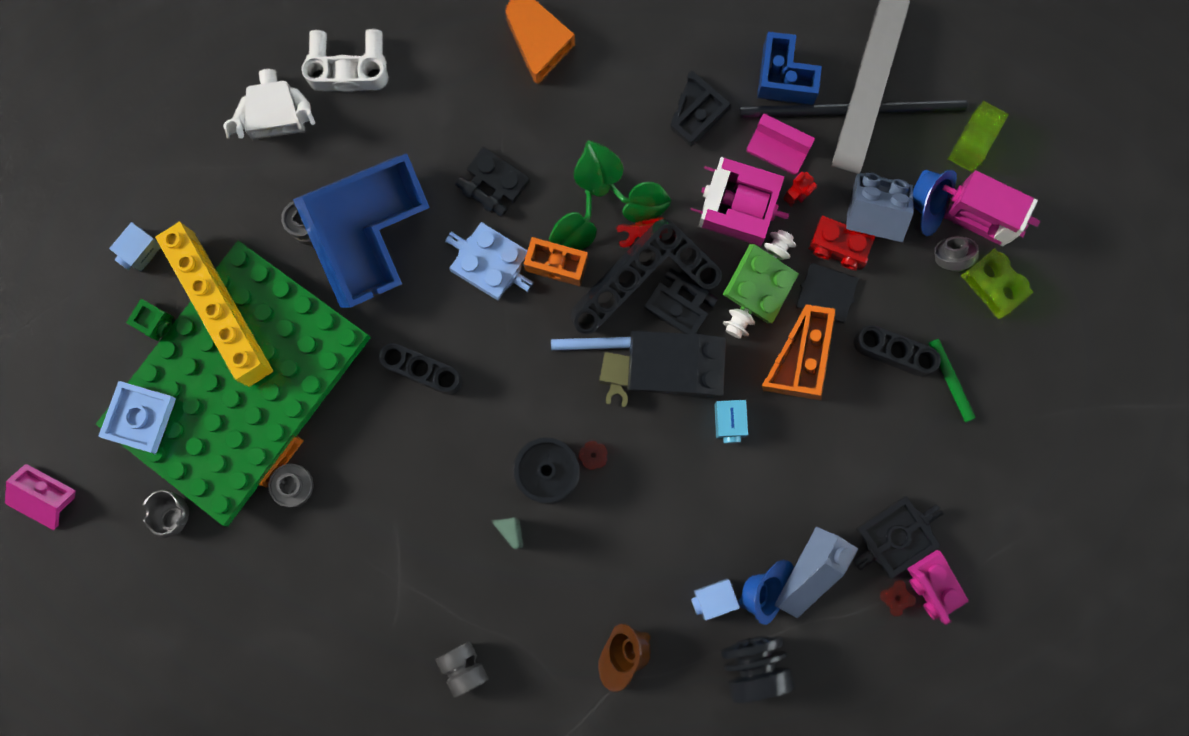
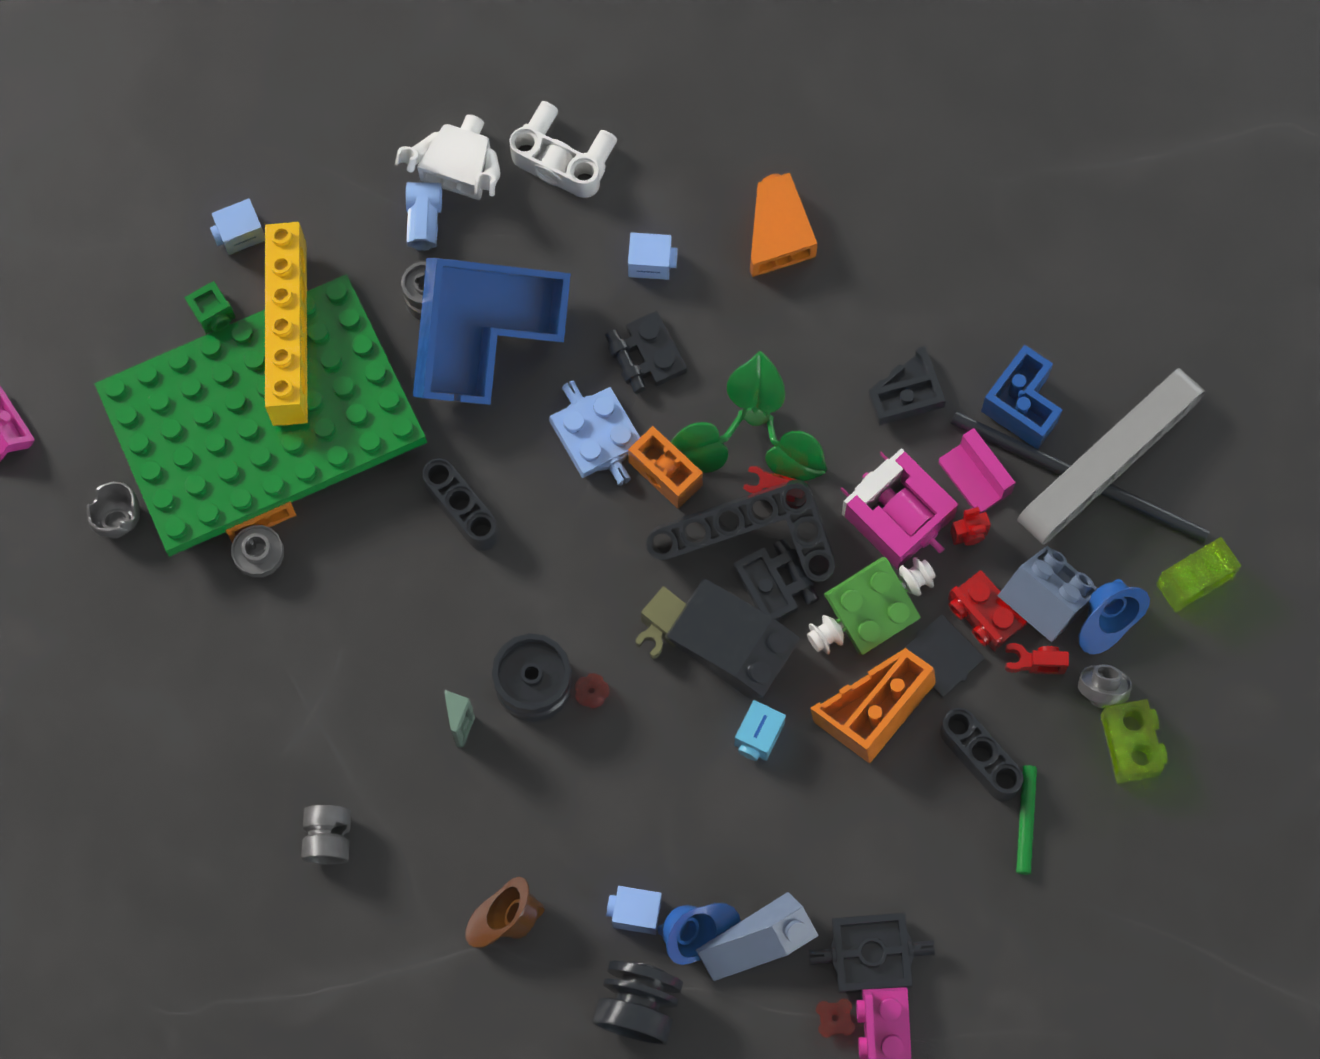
camera: 25 degrees right, 10 degrees down
(137, 417) = (142, 396): light blue plate -> none
(266, 158) = (423, 206): none -> light blue piece
(456, 107) = (651, 256): none -> light blue brick
(590, 343) = (652, 572): light blue bar -> none
(904, 256) = (1044, 661): none -> red plate
(990, 208) = (1164, 654): dark pink piece -> none

